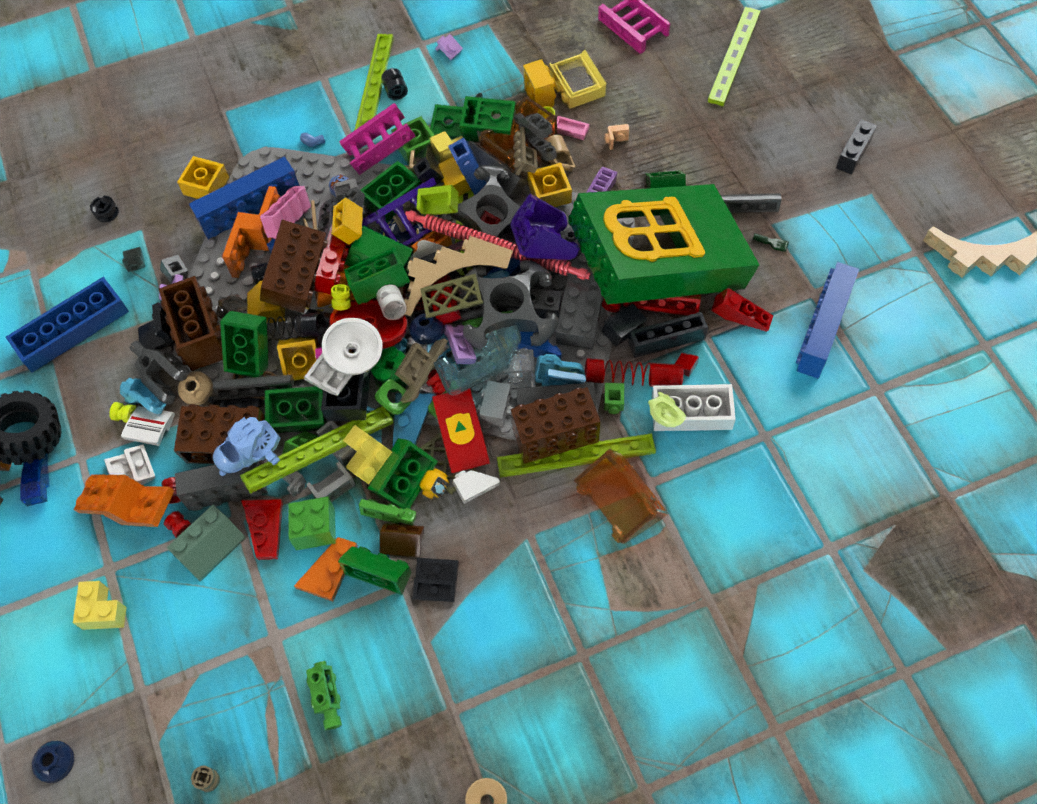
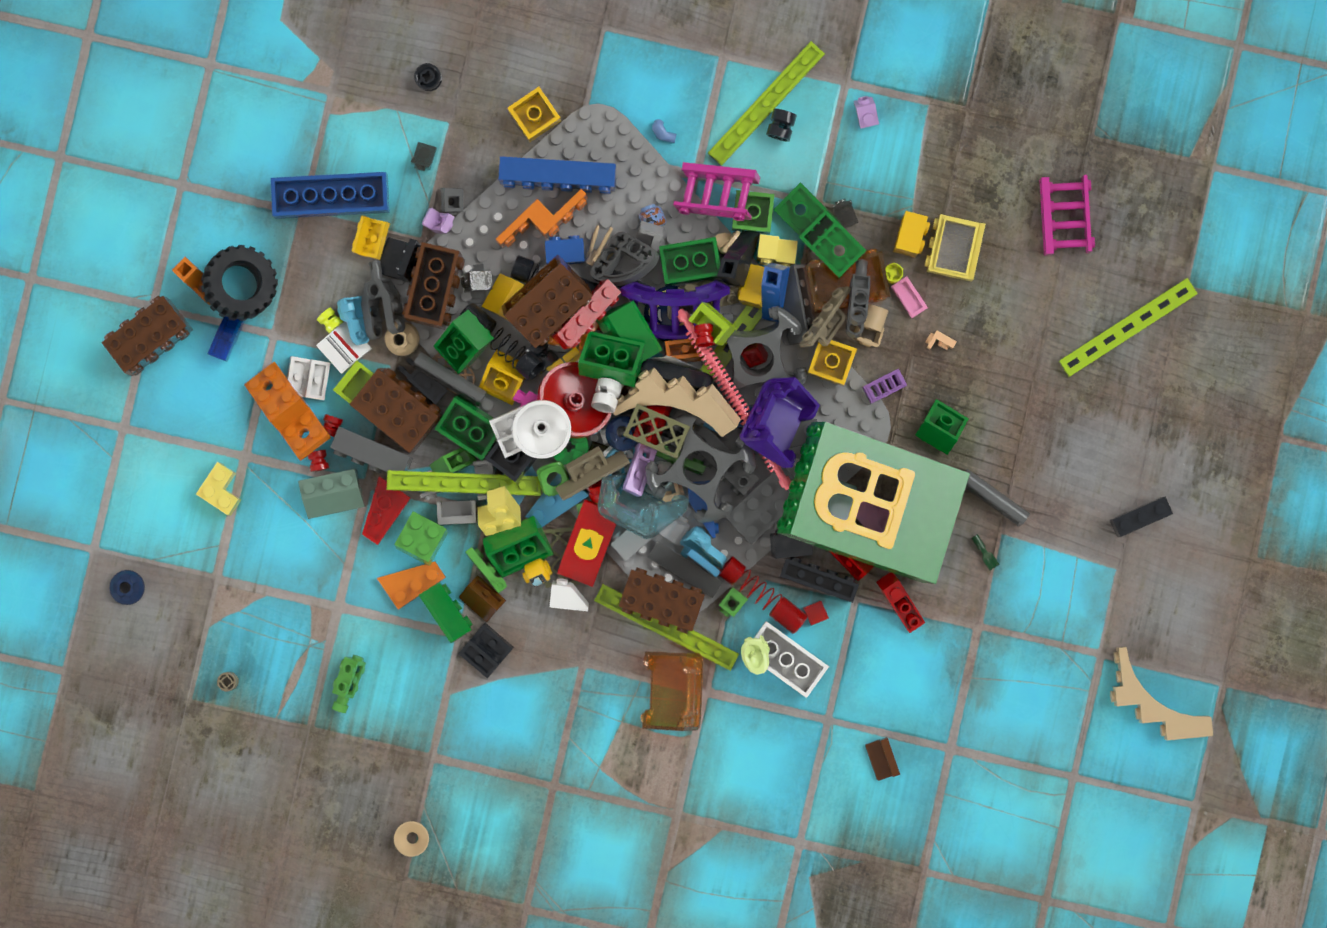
camera: 35 degrees right, 25 degrees up
(121, 334) = (370, 237): none -> yellow bracket
(165, 451) = (353, 381): none -> lime panel
(246, 445) = (406, 451): light blue helmet -> none
(288, 208) = (581, 222): bright pink brick -> none
(340, 297) = (567, 365): neon yellow wheel -> none
(347, 221) = (619, 293): yellow brick -> none
(437, 210) = (704, 334): none -> red wheel
(826, 320) = (959, 665): brick -> none
(835, 430) = (882, 759): none -> reddish brown panel

